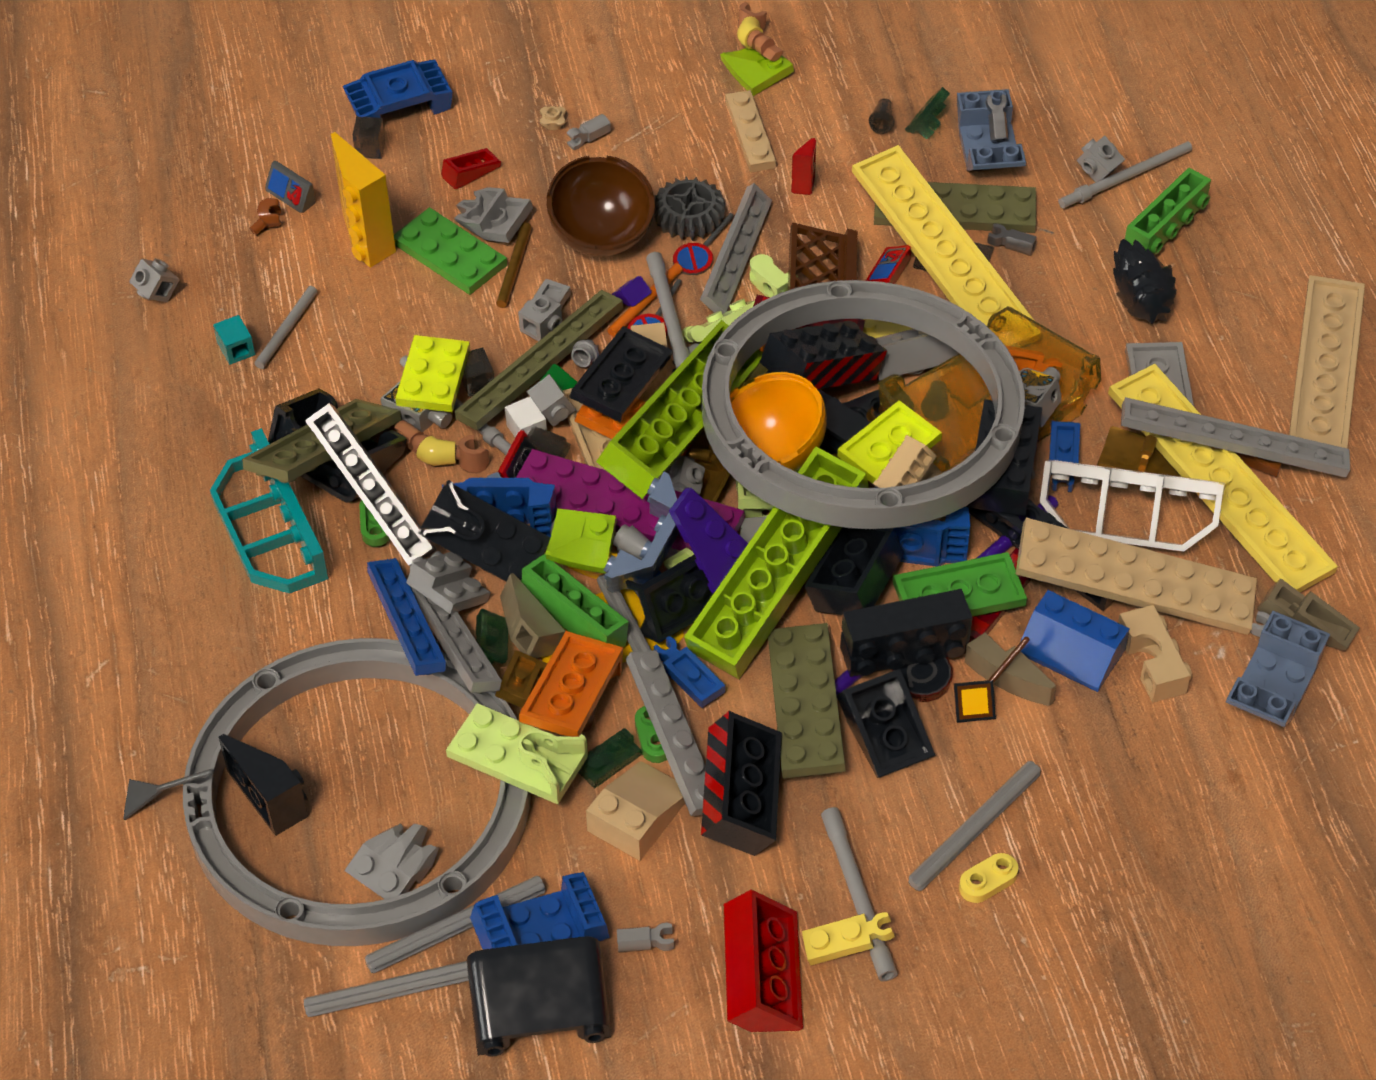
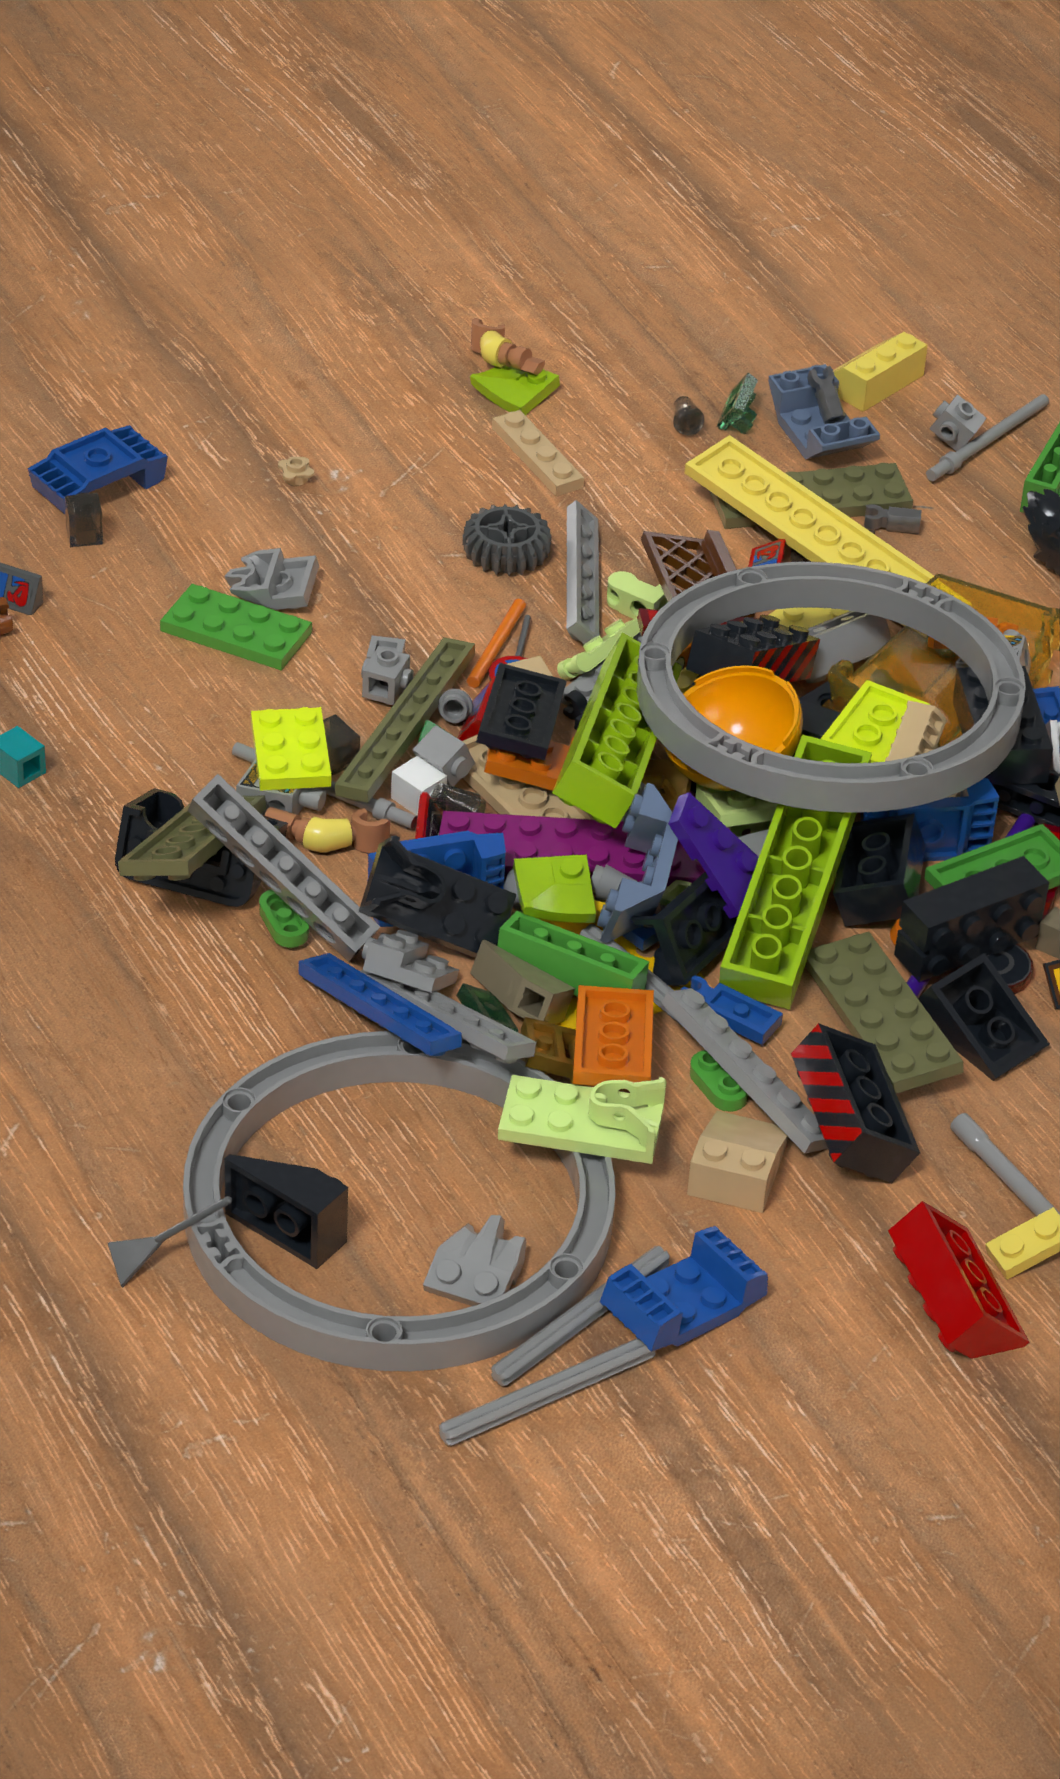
camera: 20 degrees left, 10 degrees down
(285, 327) = (72, 736): light grey bar -> none
(290, 511) = (185, 920): teal plate -> none
(363, 203) = (124, 577): yellow slope -> none
(460, 169) = (217, 536): red slope -> none
(513, 265) = (322, 630): pearl gold bar -> none
(537, 992) = (715, 1356): black windscreen -> none
(588, 131) = (348, 478): light grey bar -> none
(600, 205) = (412, 545): reddish brown piece -> none
(609, 758) = (683, 1112): clear green plate -> none
(633, 291) = (482, 632): dark purple slope -> none
(644, 938) = (808, 1286): light grey bar -> none
(658, 273) = (504, 609): light grey piece -> none
(697, 257) = (535, 590): piece -> none
(804, 168) = (628, 477): red slope -> none
(1057, 99) = (881, 371): none -> light yellow slope

